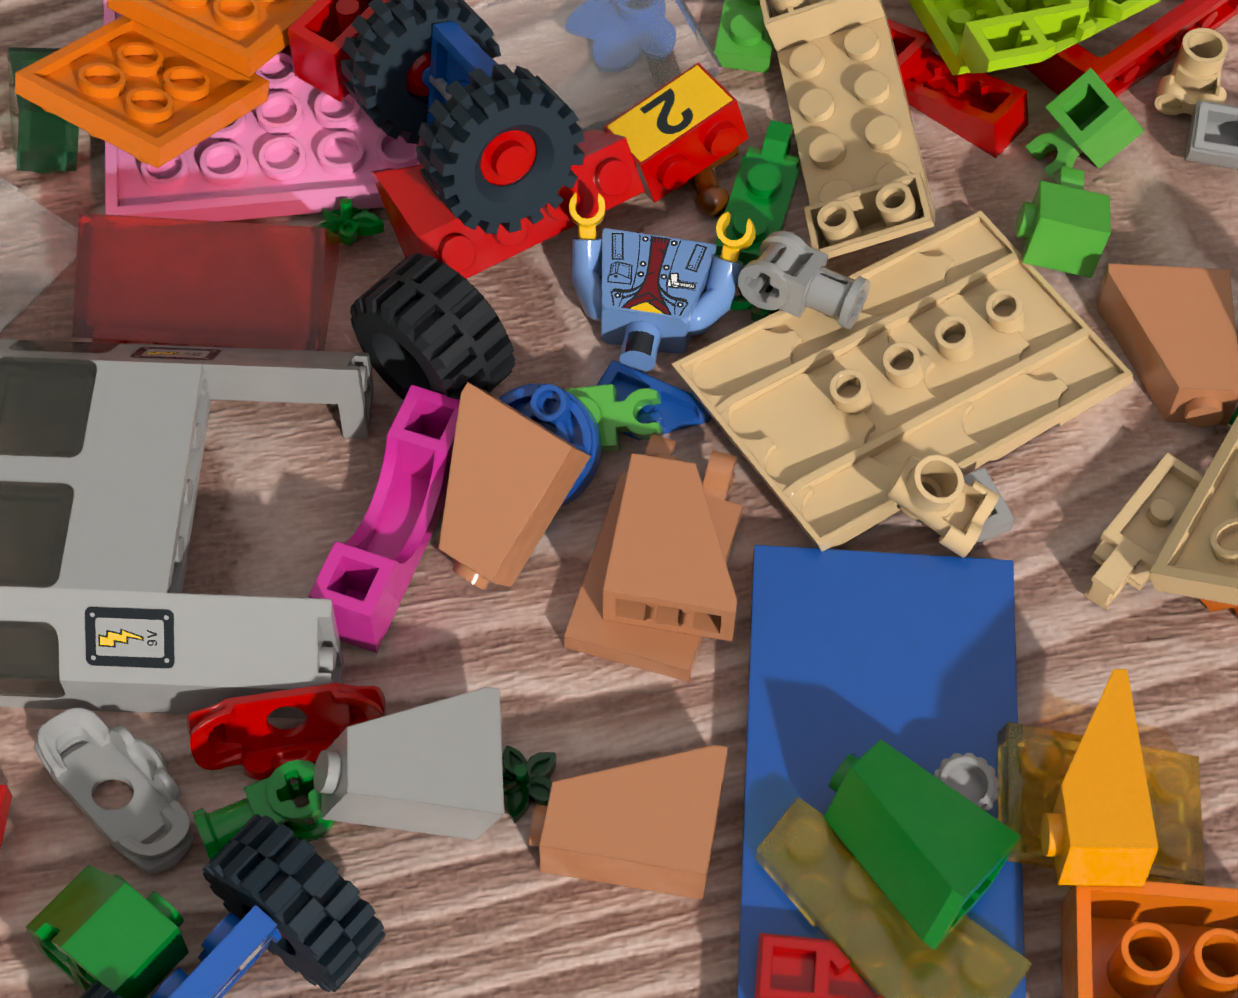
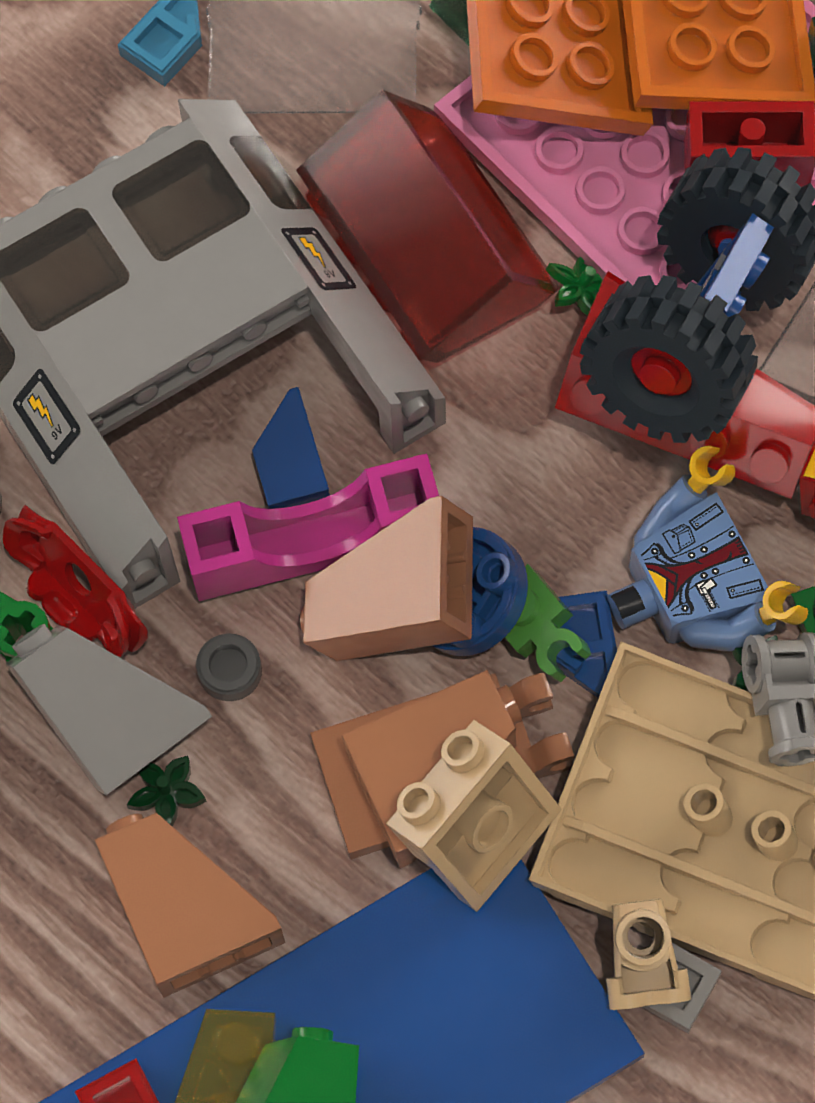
camera: 60 degrees right, 10 degrees up
(309, 508) = (289, 457): none -> blue tile
(431, 330) = (489, 435): black tyre -> none
(453, 665) = (229, 667): none -> dark grey tile
(745, 530) = (474, 813): none -> tan plate

